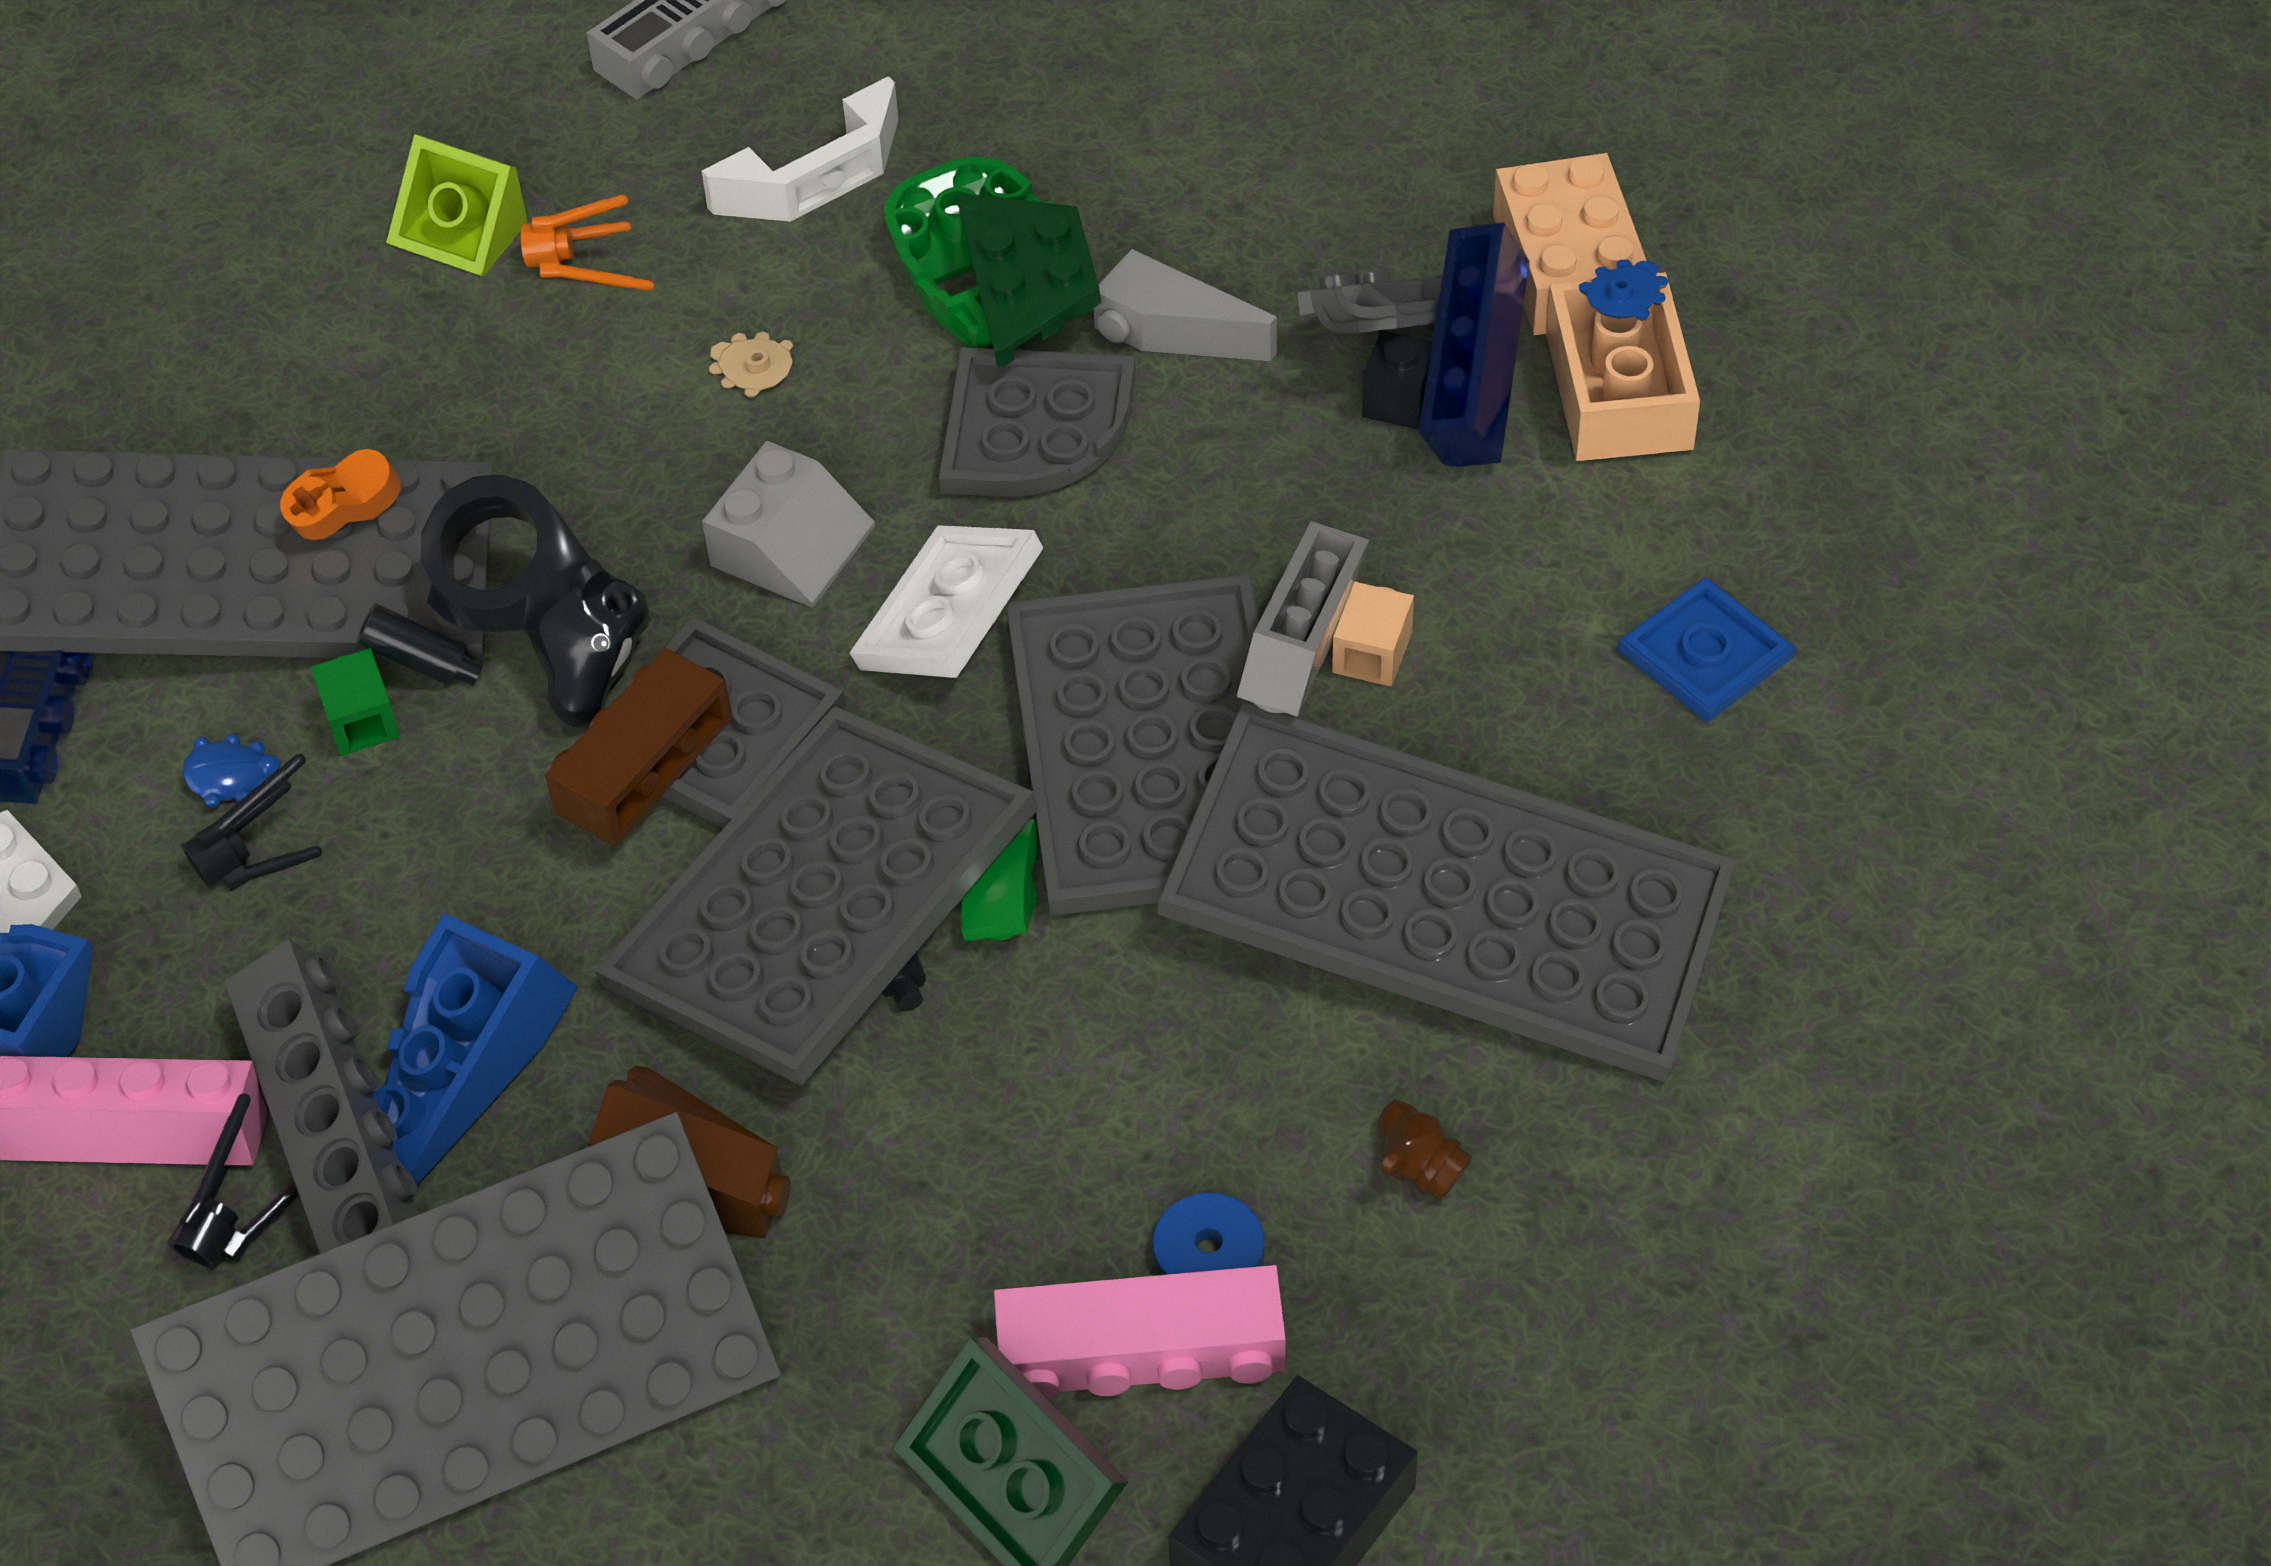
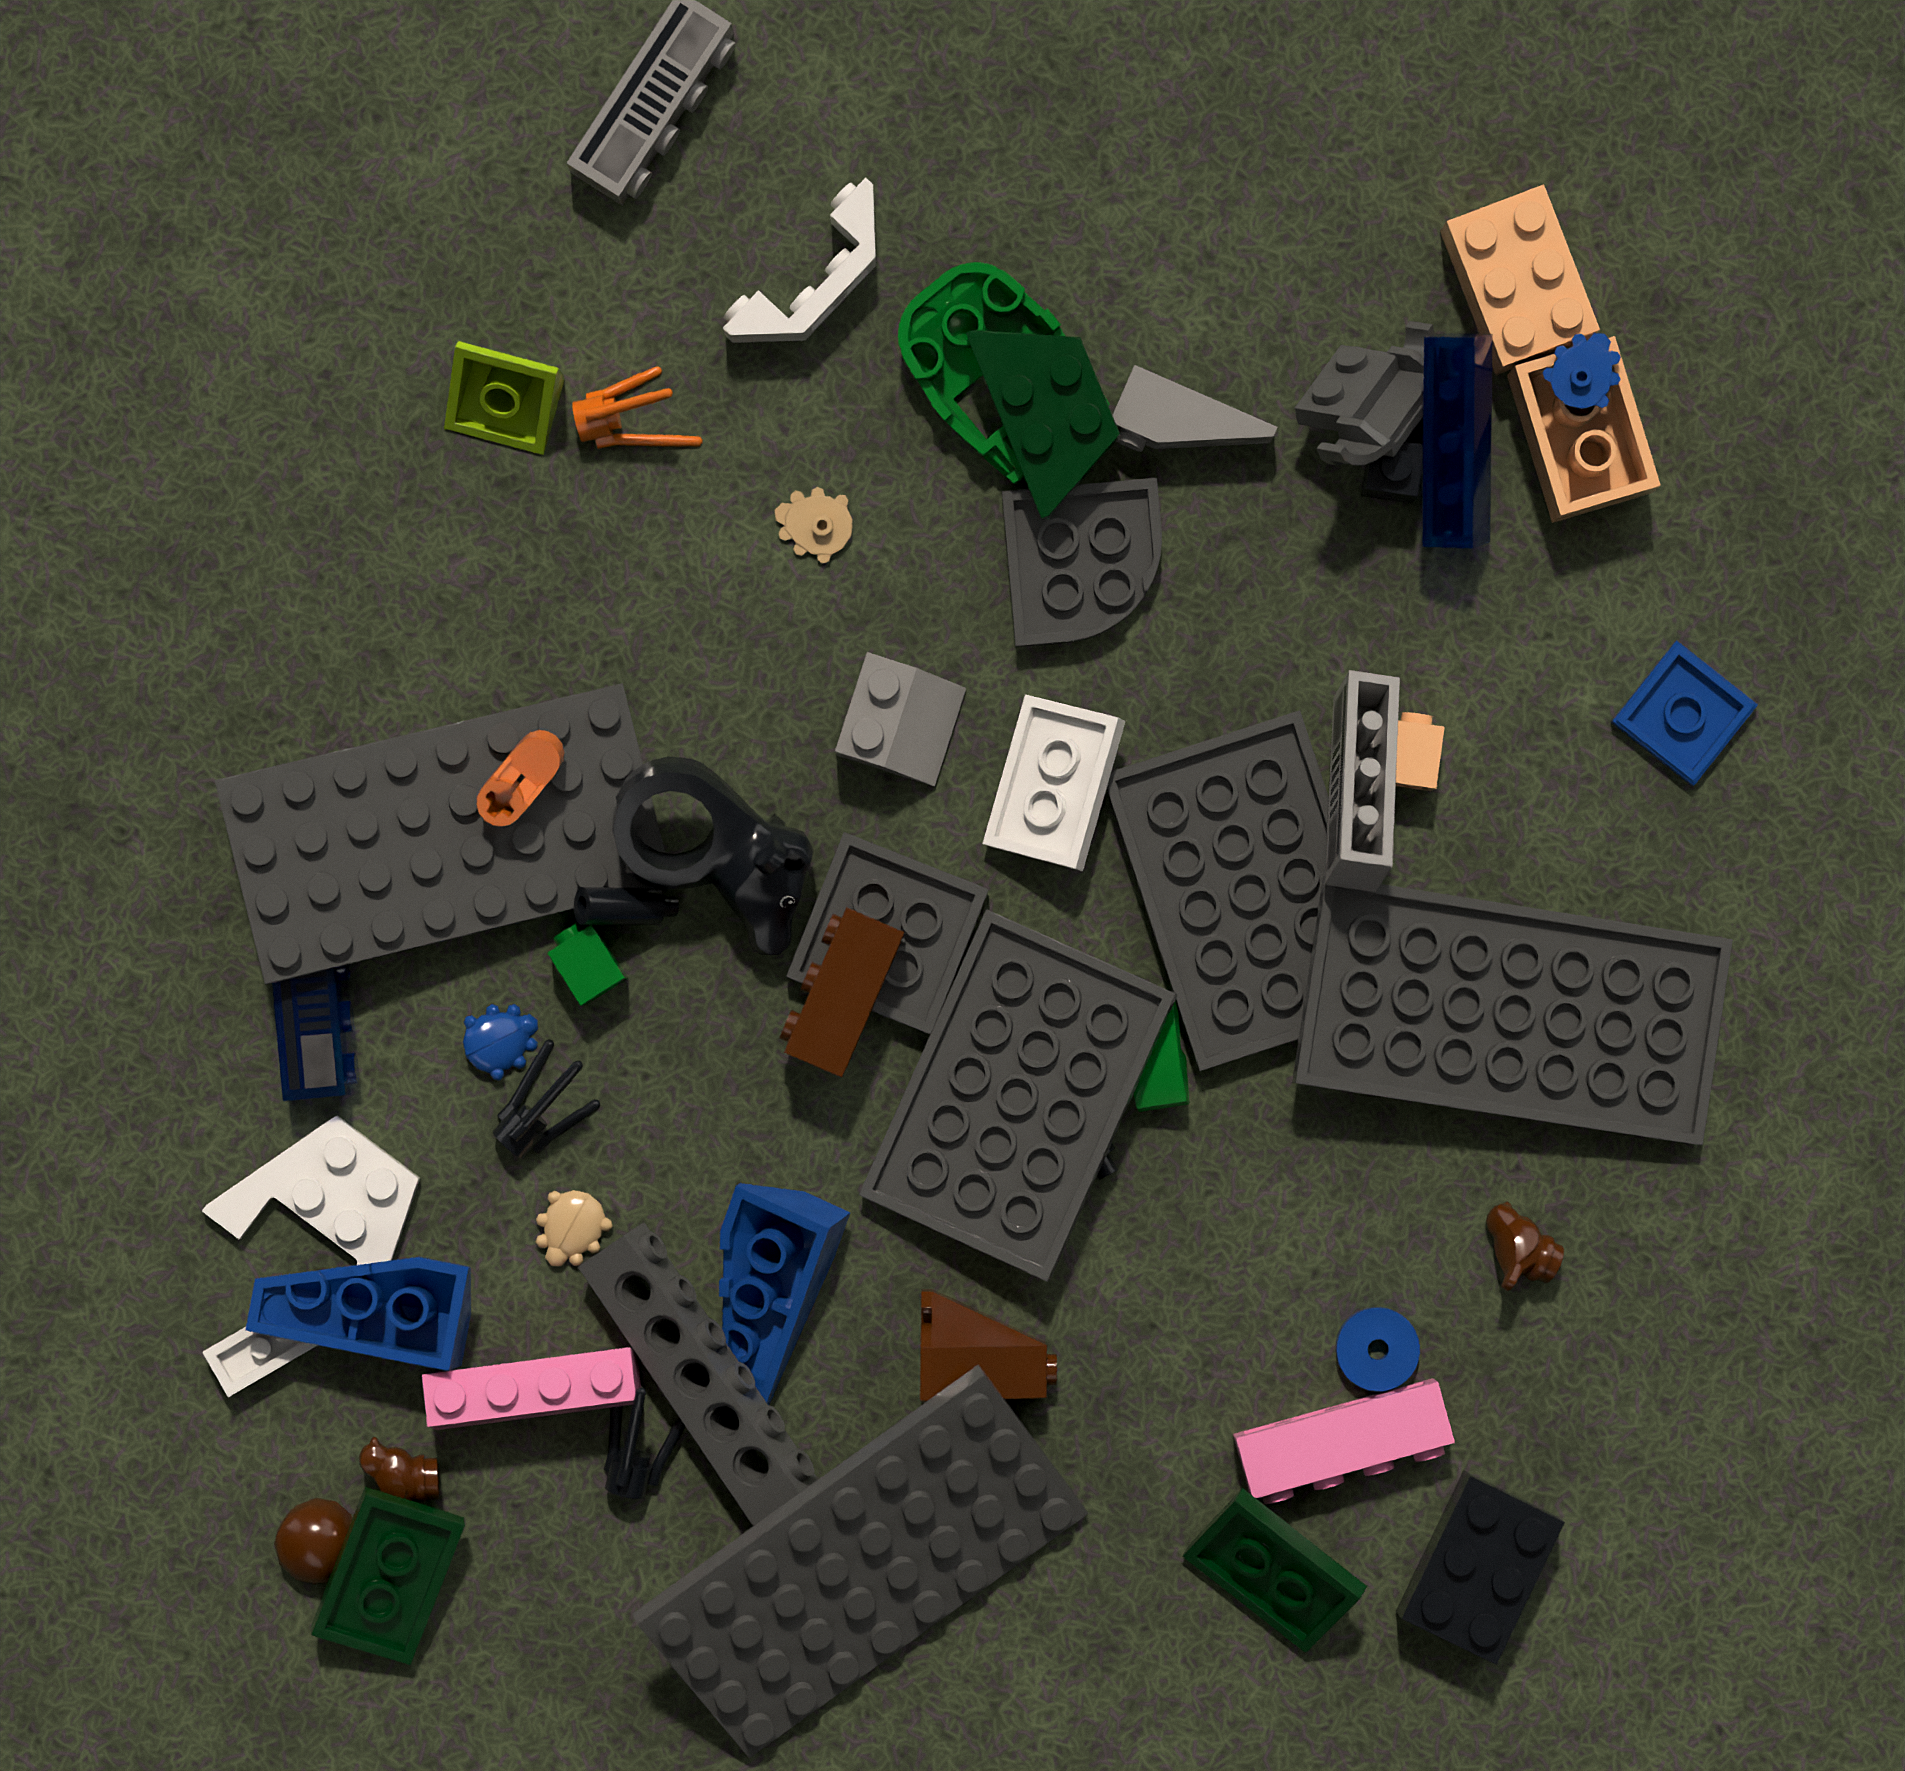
camera: 15 degrees left, 35 degrees up
(228, 957) = (571, 1227): none -> tan piece

